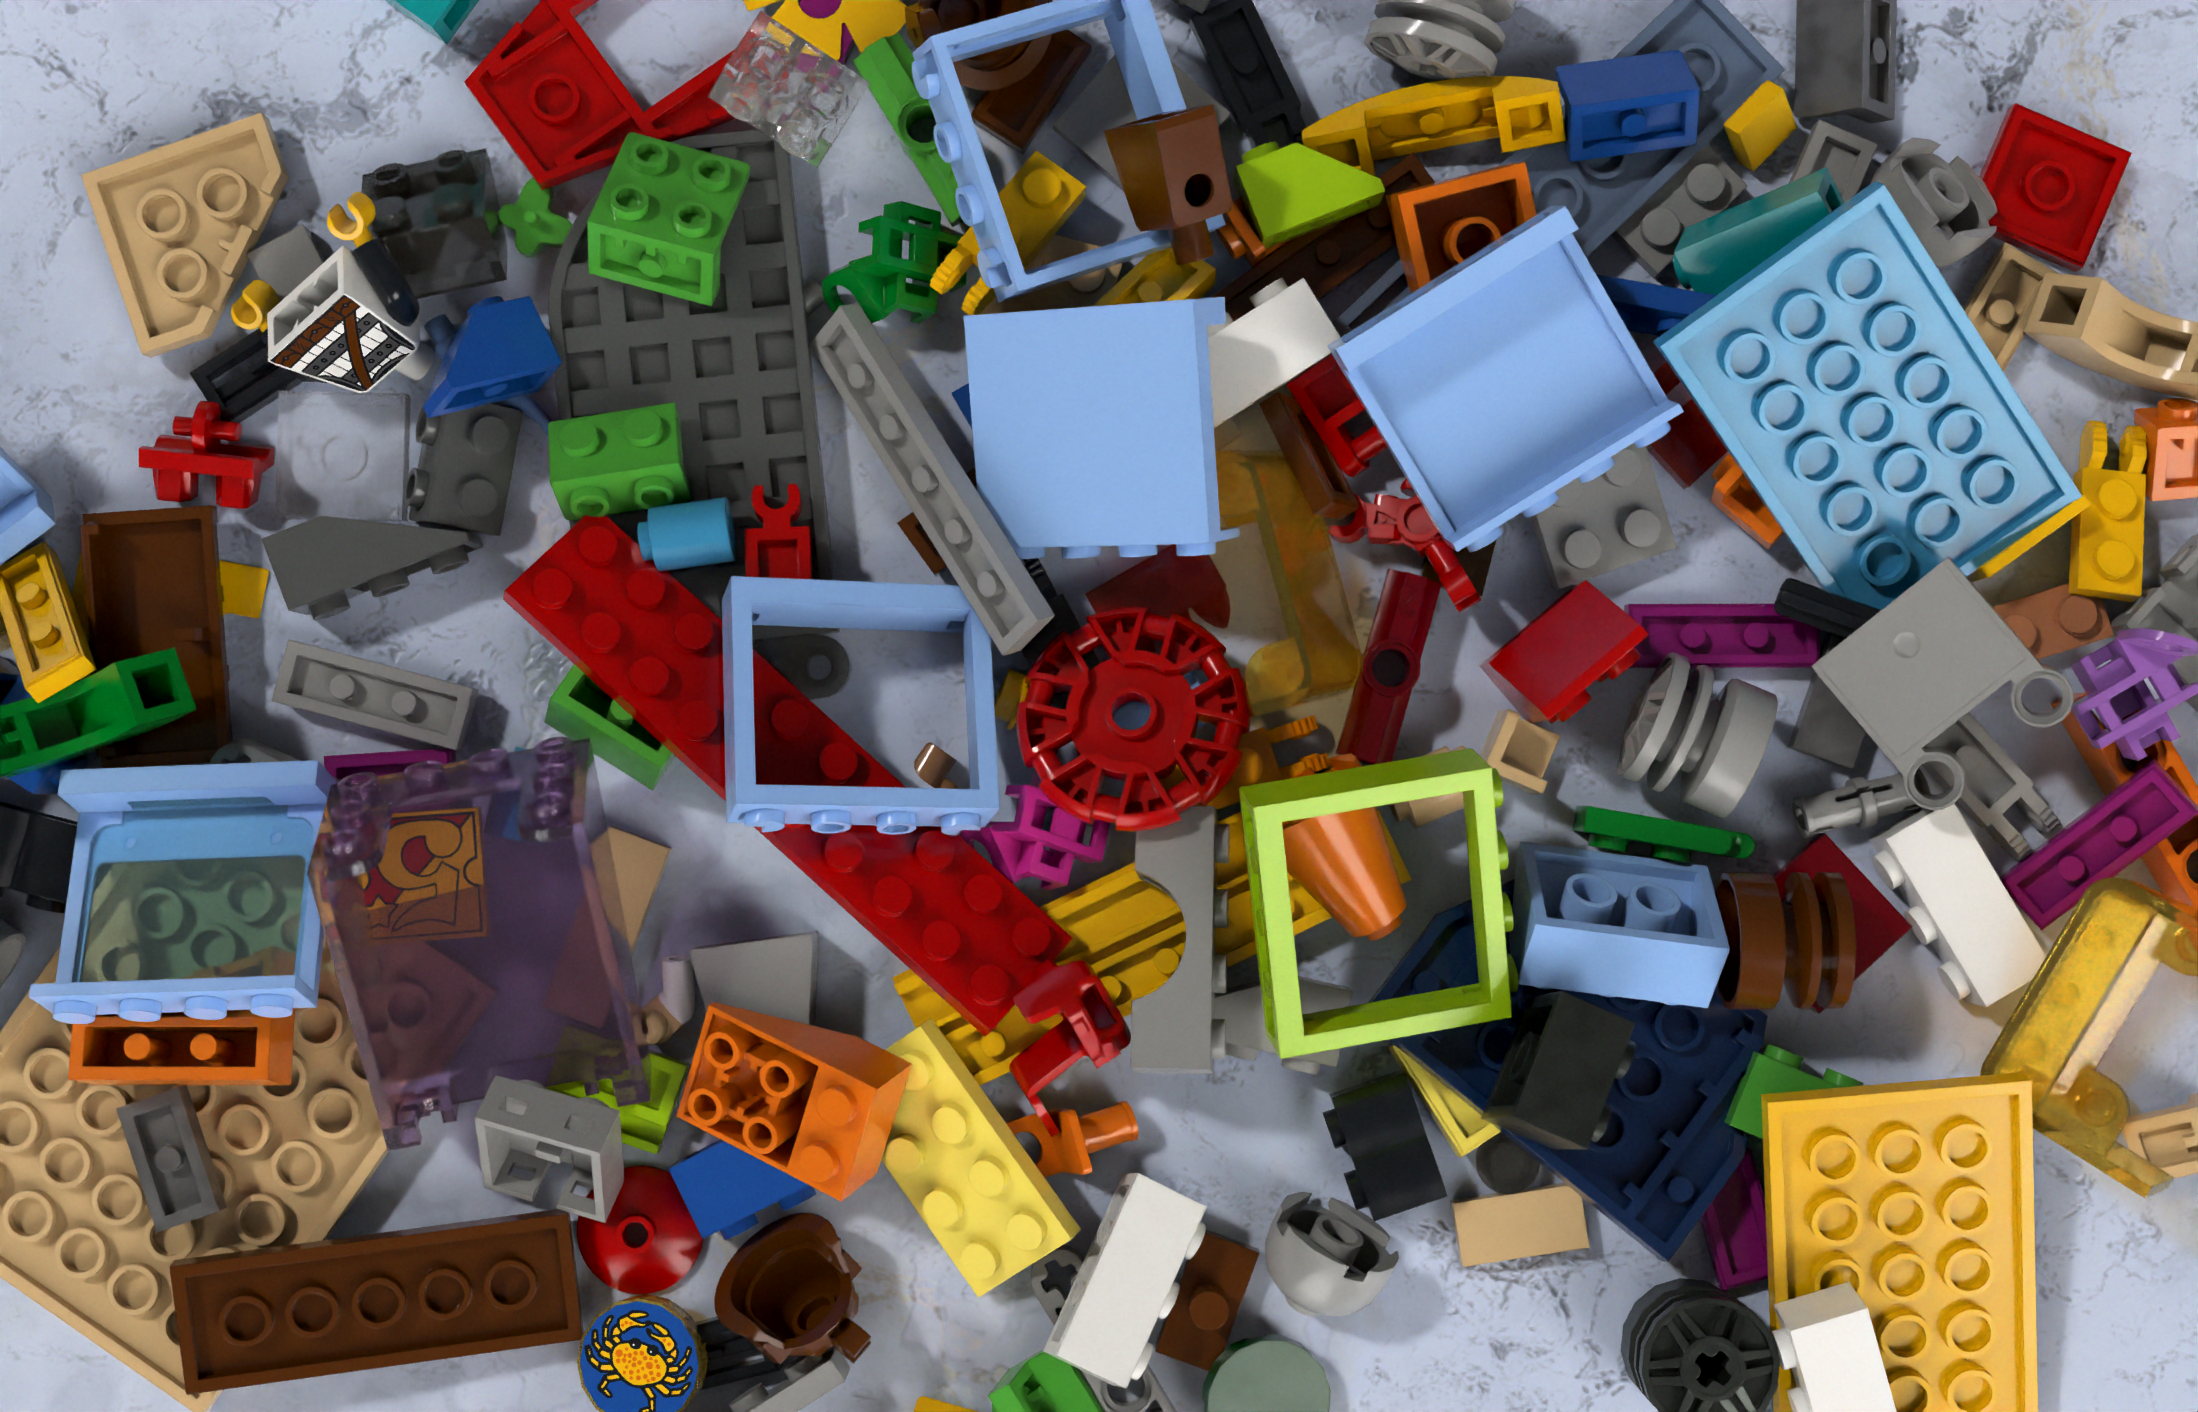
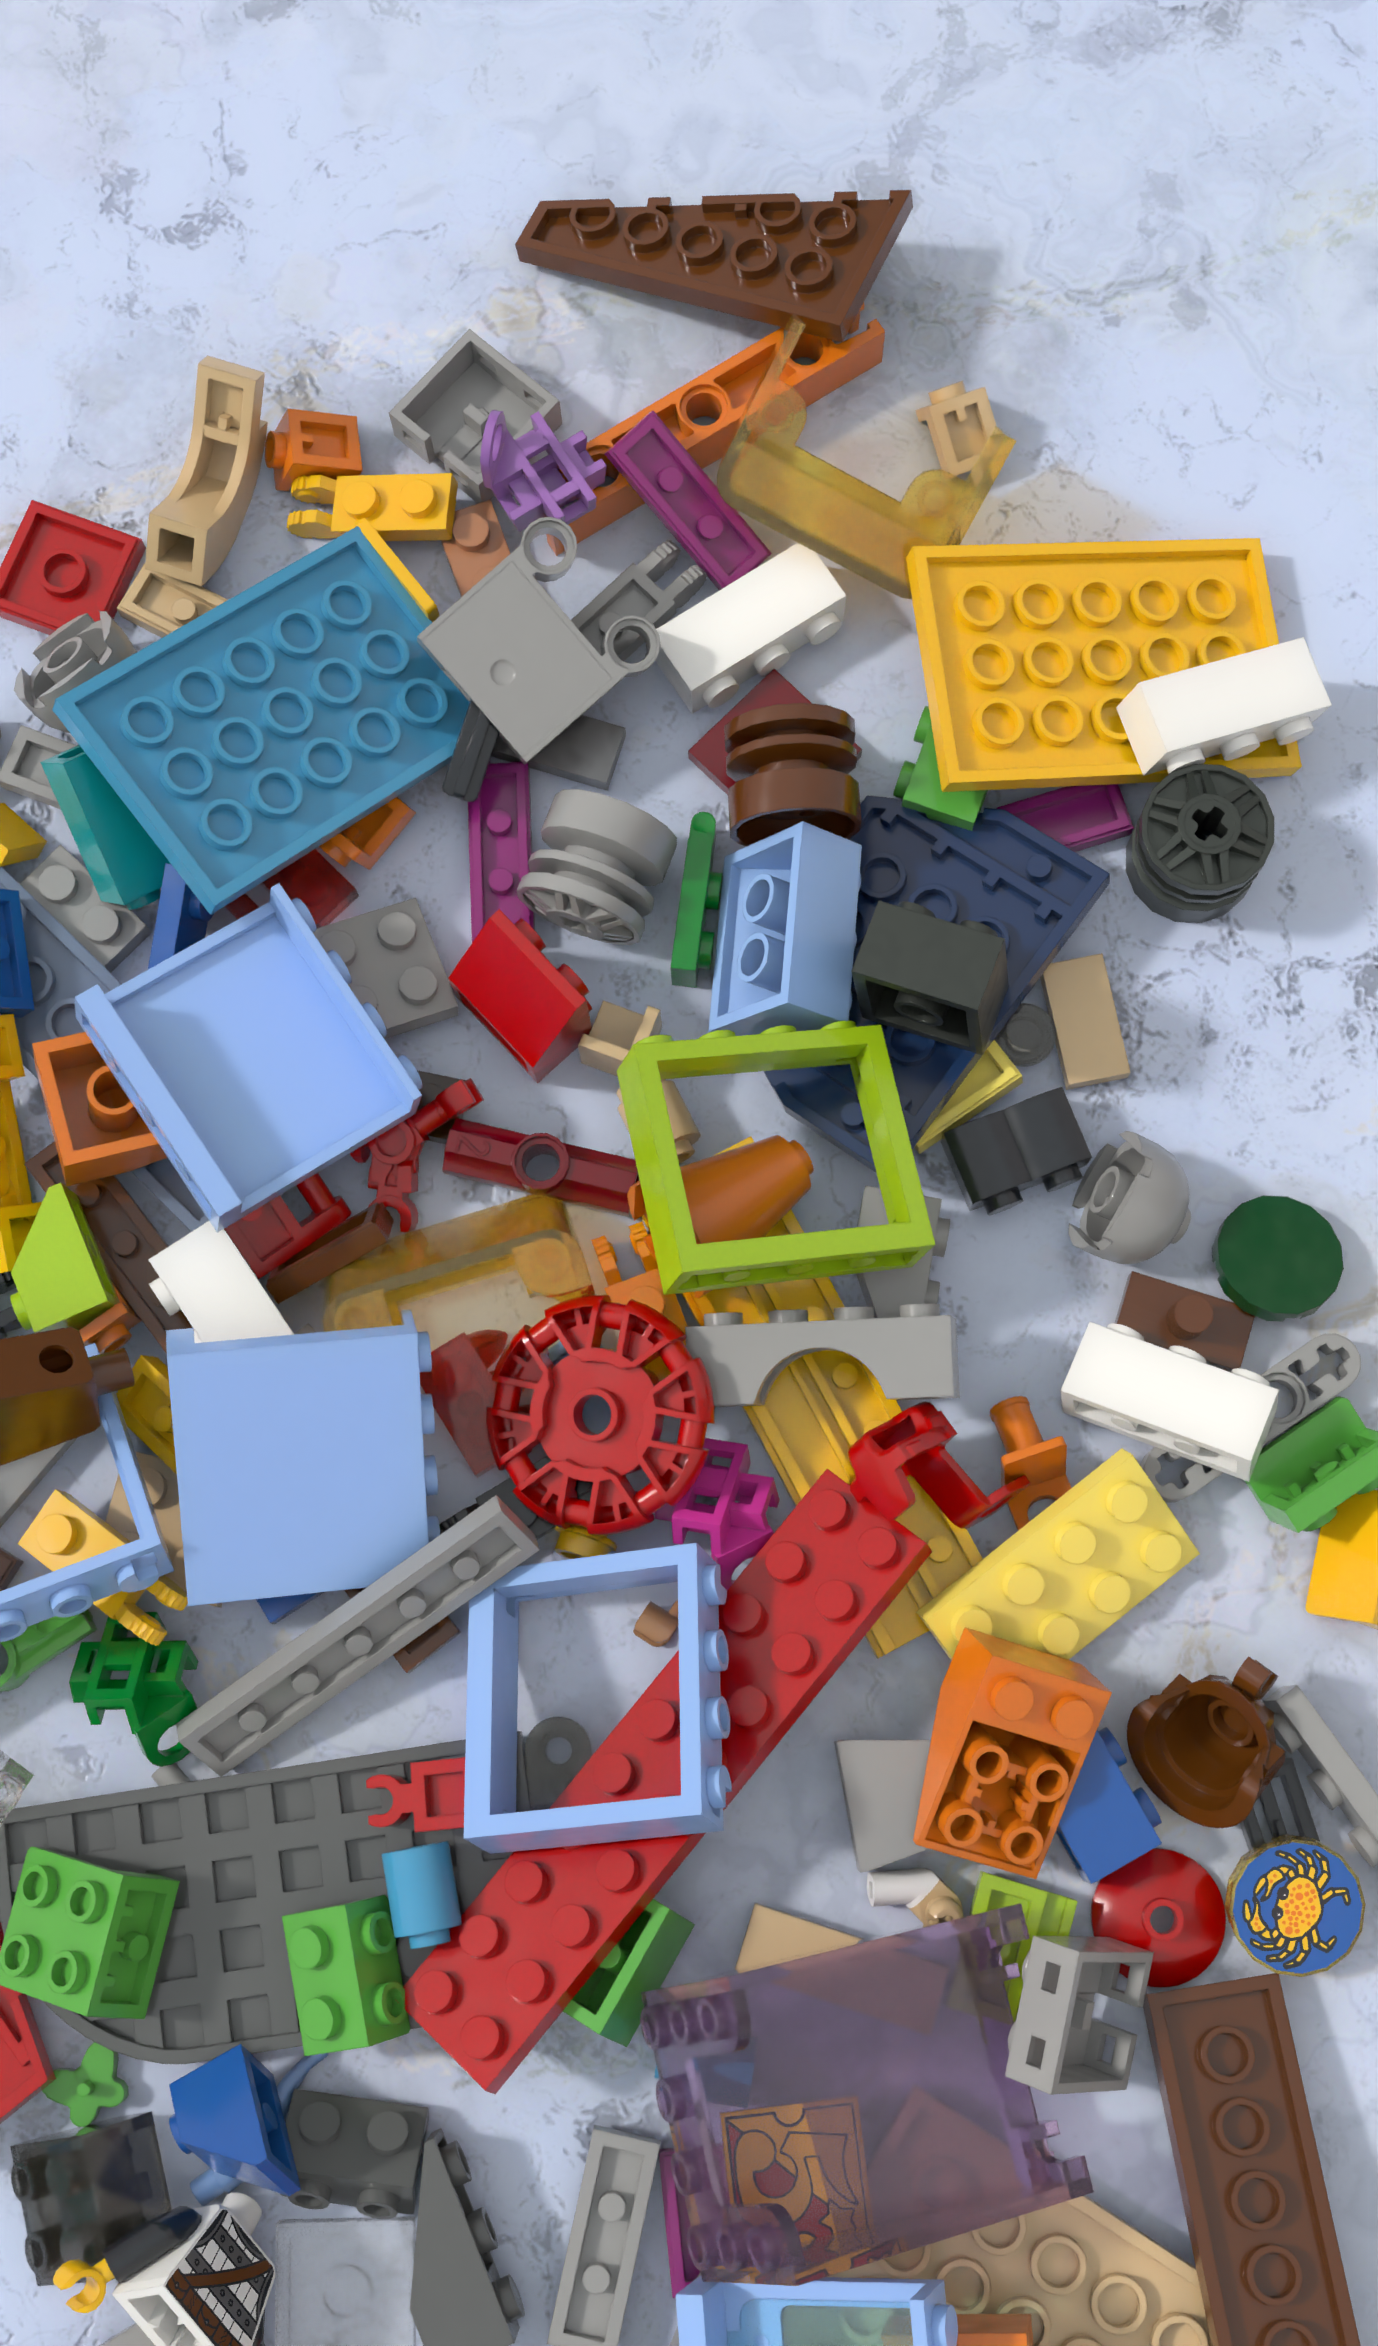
camera: 90 degrees left, 10 degrees down
(1857, 803) = (658, 723): light grey pin -> none

